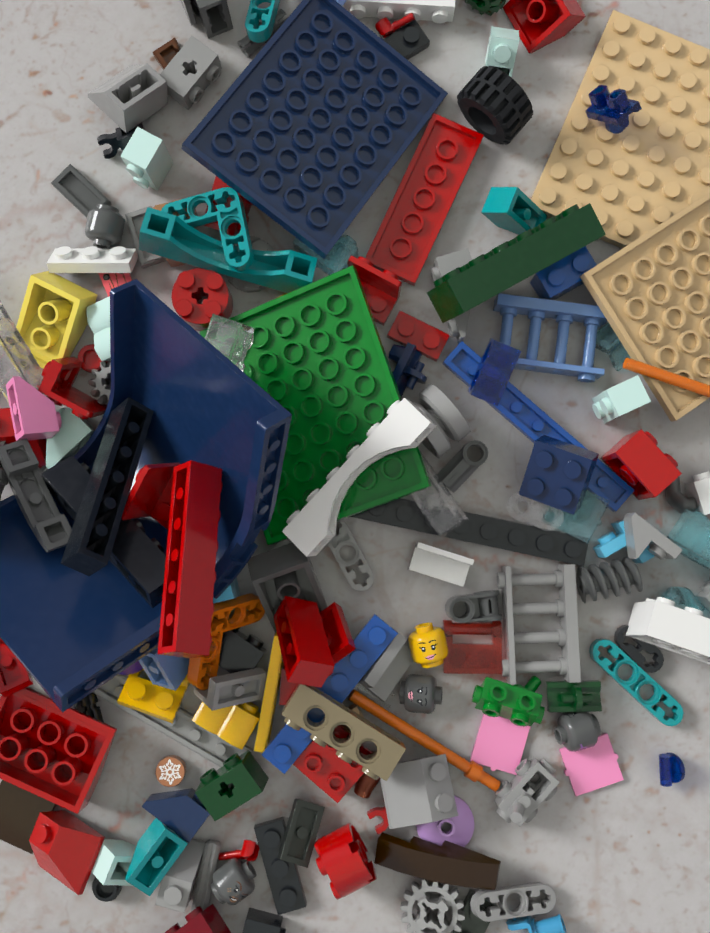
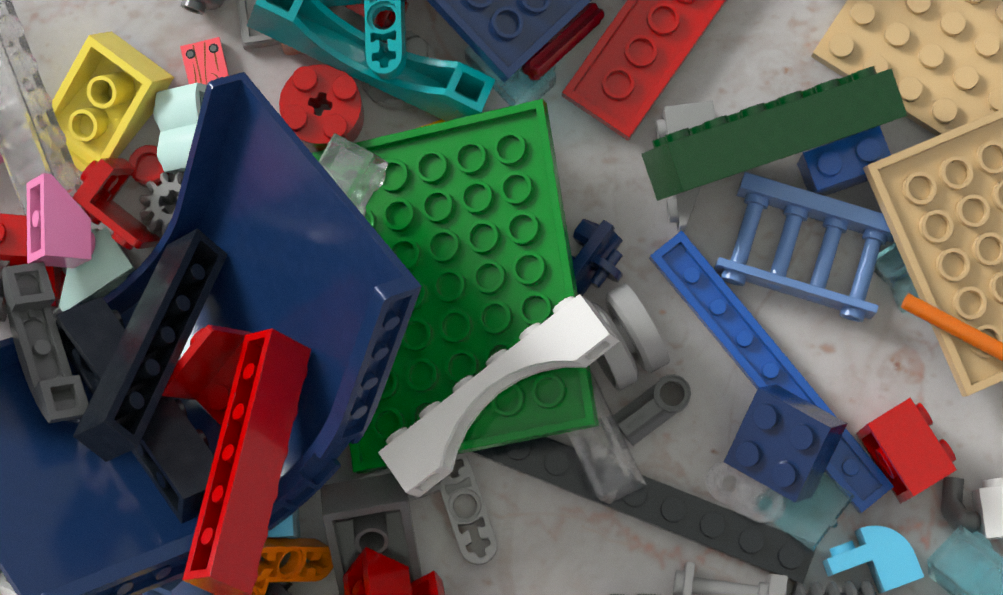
camera: 10 degrees right, 5 degrees down
(92, 260) = (176, 27): white plate -> none
(359, 225) = (563, 41): none -> dark red axle
(380, 288) = (576, 137): red bracket -> none
(426, 338) = (631, 218): red plate -> none
(440, 564) = (595, 544): white panel -> none
(494, 371) = (717, 281): clear blue brick -> none
(512, 210) = (787, 57): teal slope -> none
(620, 399) = (892, 353): light aqua brick -> none
(641, 534) = (888, 545): light grey slope -> none

